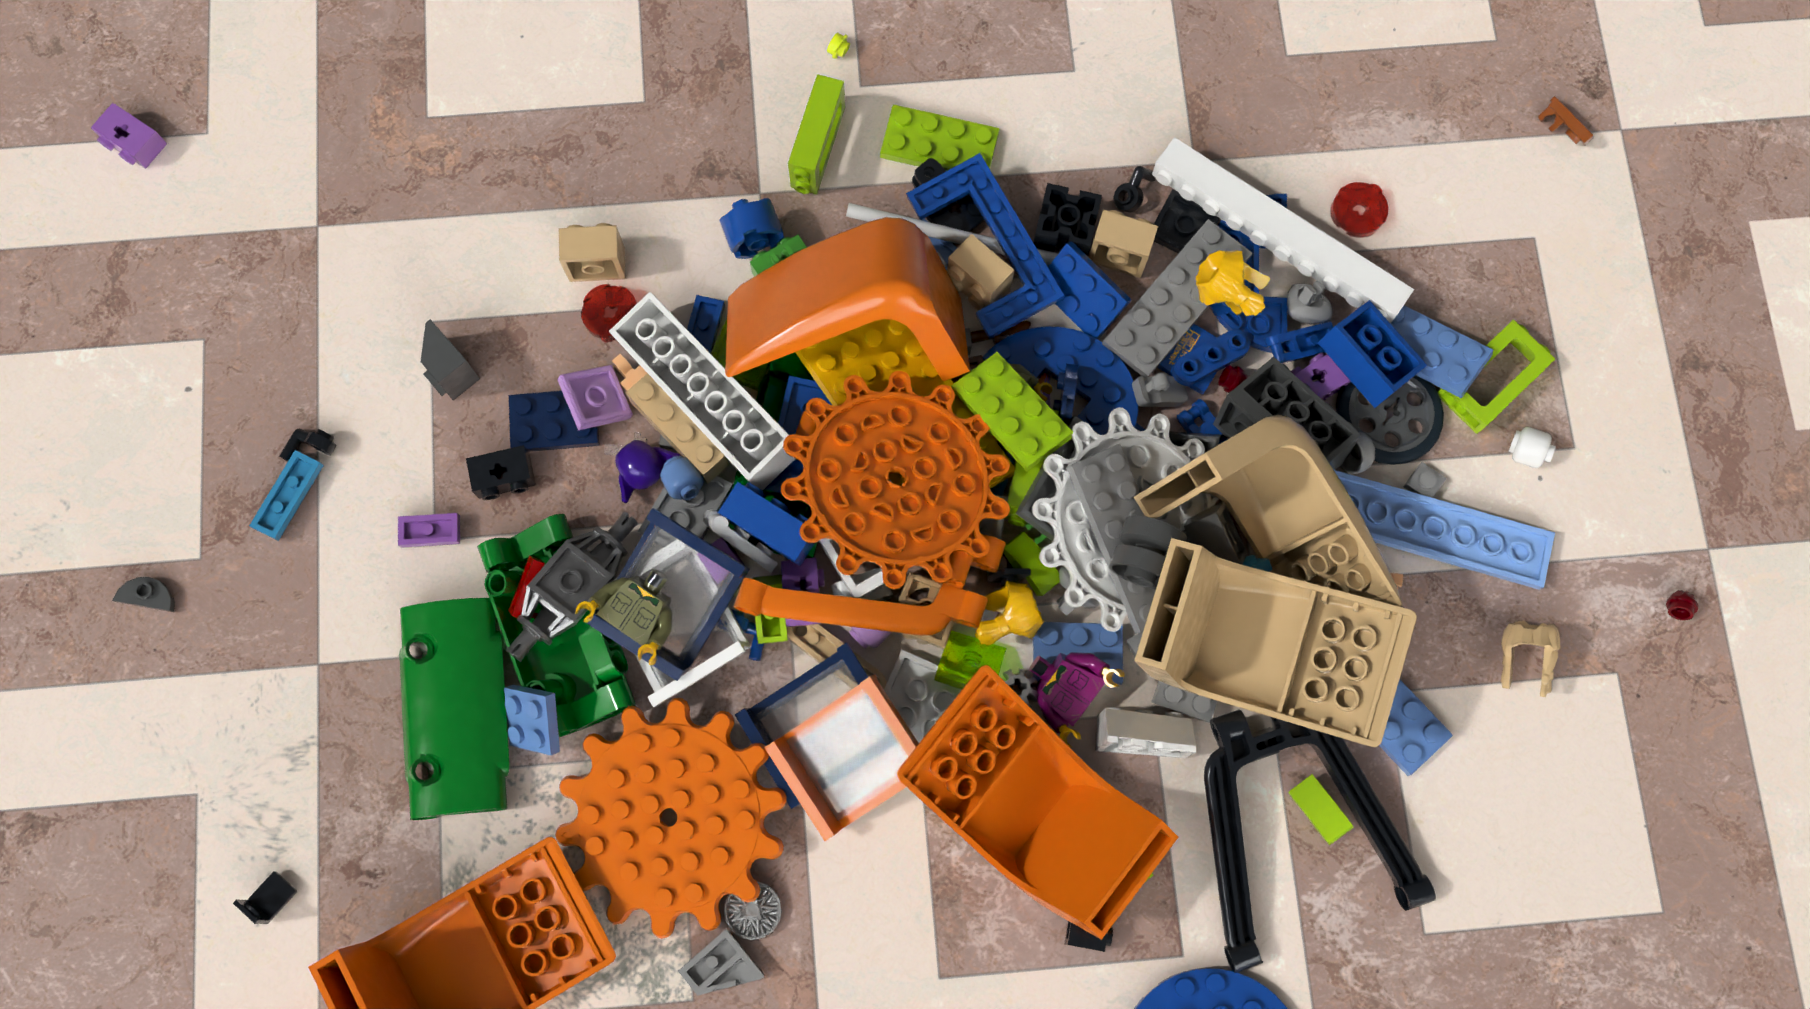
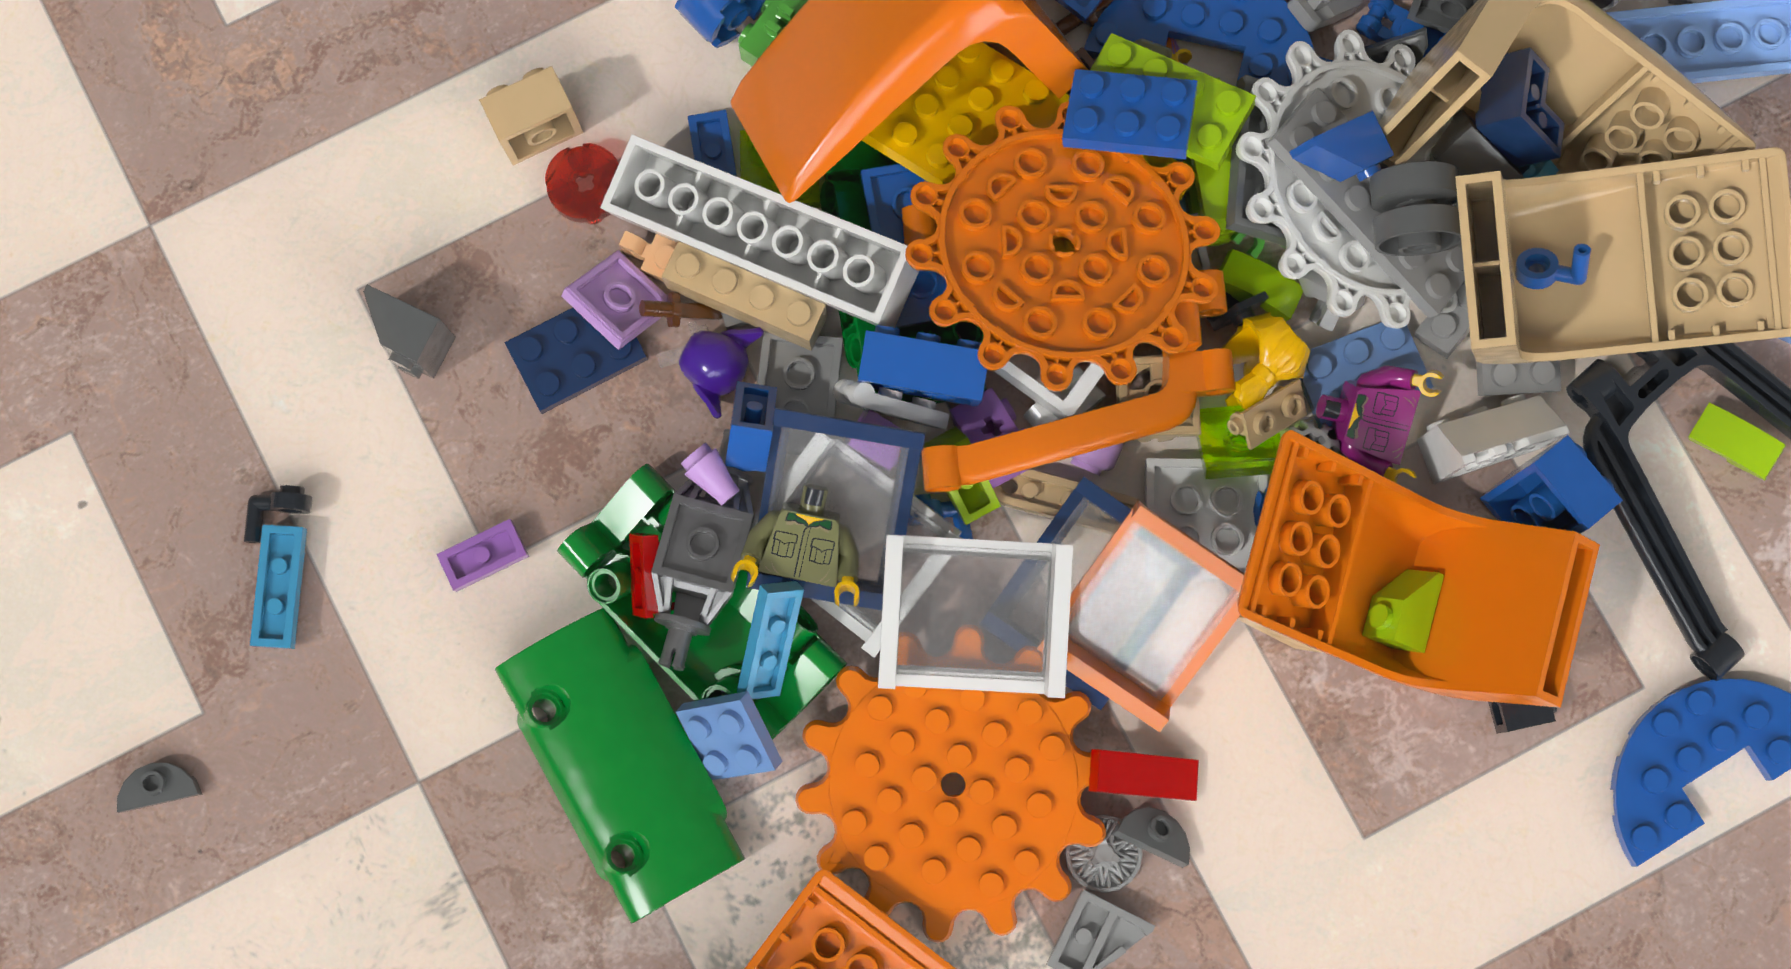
camera: 20 degrees left, 5 degrees up
(487, 467) = (520, 449): black brick -> none
(586, 664) = (770, 639): none -> dark azure plate
(595, 535) = (710, 473): none -> lavender cone
(629, 419) = (675, 310): none -> reddish brown piece
(632, 520) = (751, 427): none -> blue slope
(681, 478) = (778, 357): medium blue head -> none
(726, 704) = (975, 615): none -> clear piece
(793, 911) = (1155, 833): none -> dark grey plate
(801, 866) = (1143, 775): none -> red tile
(981, 409) = (1130, 113): none -> blue plate
(998, 653) = (1270, 414): none -> tan hinge
(1032, 829) = (1404, 611): none -> lime slope
(1067, 384) = (1218, 49): dark blue plate -> none
(1117, 492) = (1347, 149): none -> blue slope
(1168, 788) = (1554, 491): none -> blue brick
(1223, 630) = (1540, 267): none -> blue plate
(1251, 515) = (1515, 110): none -> dark blue brick

